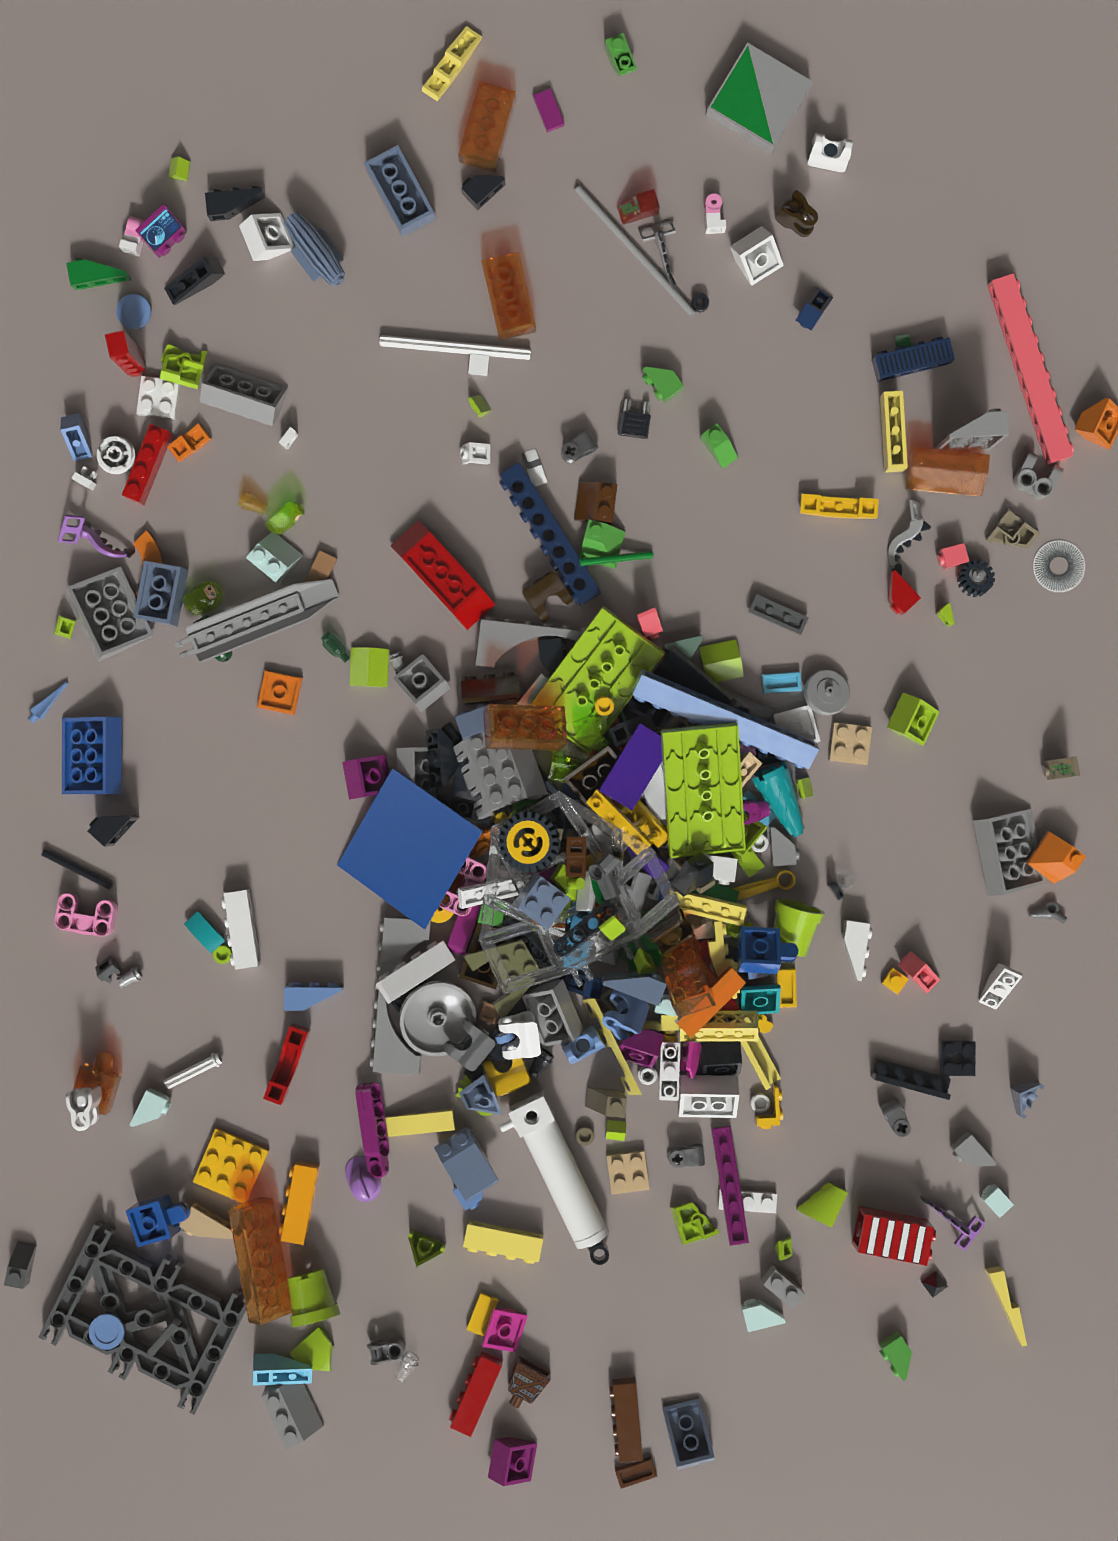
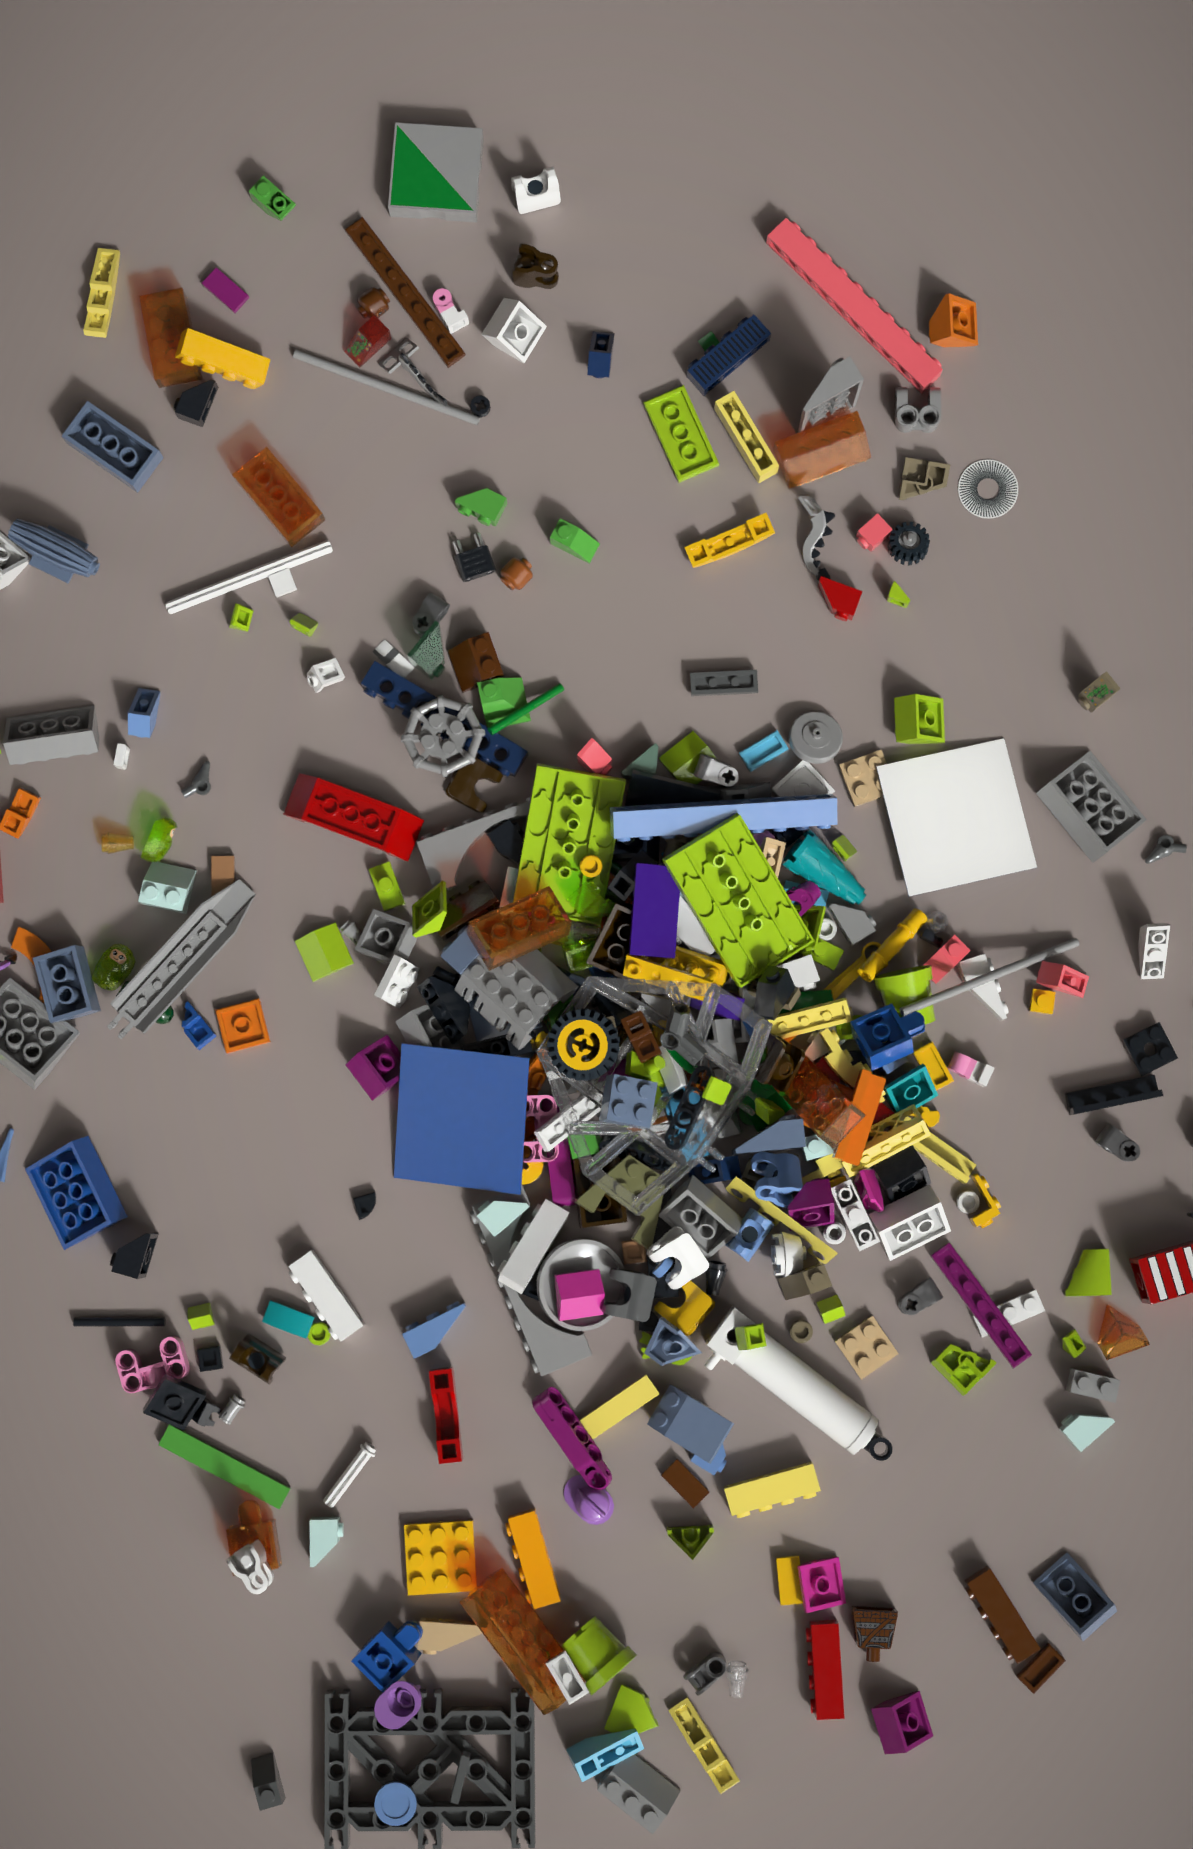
camera: 20 degrees left, 5 degrees down
(88, 951) = (174, 1402): none -> black plate
(103, 1017) = (224, 1466): none -> bright green tile
(131, 931) = (210, 1358): none -> black tile
(140, 896) = (200, 1316): none -> lime slope
(144, 1260) = (398, 1704): none -> medium lavender piece
(167, 950) = (257, 1358): none -> dark brown piece
(243, 676) = (196, 1027): none -> blue slope
(279, 1305) = (567, 1677): none -> white slope
(305, 874) = (365, 1204): none -> black tile
(321, 412) = (143, 713): none -> medium blue slope
(334, 646) = (277, 947): clear green plant -> none
(339, 489) = (200, 782): none -> dark grey animal
(357, 1402) = (704, 1745): none -> light yellow slope
(402, 936) = (500, 1214): none -> light aqua slope
(412, 719) = (397, 981): none -> white plate
(431, 1025) = (579, 1294): none -> dark pink slope
(433, 376) = (241, 618): none -> lime slope
(440, 1203) = (685, 1483): none -> reddish brown tile
(441, 641) = (387, 886): none -> lime tile
(464, 678) = (429, 911): none -> lime slope
(519, 164) = (222, 358): none -> yellow brick
(530, 547) = (437, 724): none -> light grey plate
(543, 1124) = (750, 1336): none -> lime slope
(563, 477) = (429, 652): none -> clear green slope
(604, 1074) = (787, 1253): none -> white cone
(658, 178) = (373, 302): none -> reddish brown head
(662, 449) = (516, 573): none -> dark orange head
(687, 182) = (405, 292): none -> reddish brown tile
(734, 678) = (713, 769): none -> flat silver piece
(803, 881) = (892, 945): none -> yellow piece
(814, 1005) = (970, 1069): none -> leg
(822, 1259) = (1119, 1335): none -> clear orange slope
(840, 911) = (947, 958): none -> coral slope
(844, 403) = (681, 433): none -> lime tile
(864, 943) = (990, 976): none -> light grey piece
(902, 807) = (956, 817): none -> white piece
(1055, 858) = (1141, 788): orange slope -> none

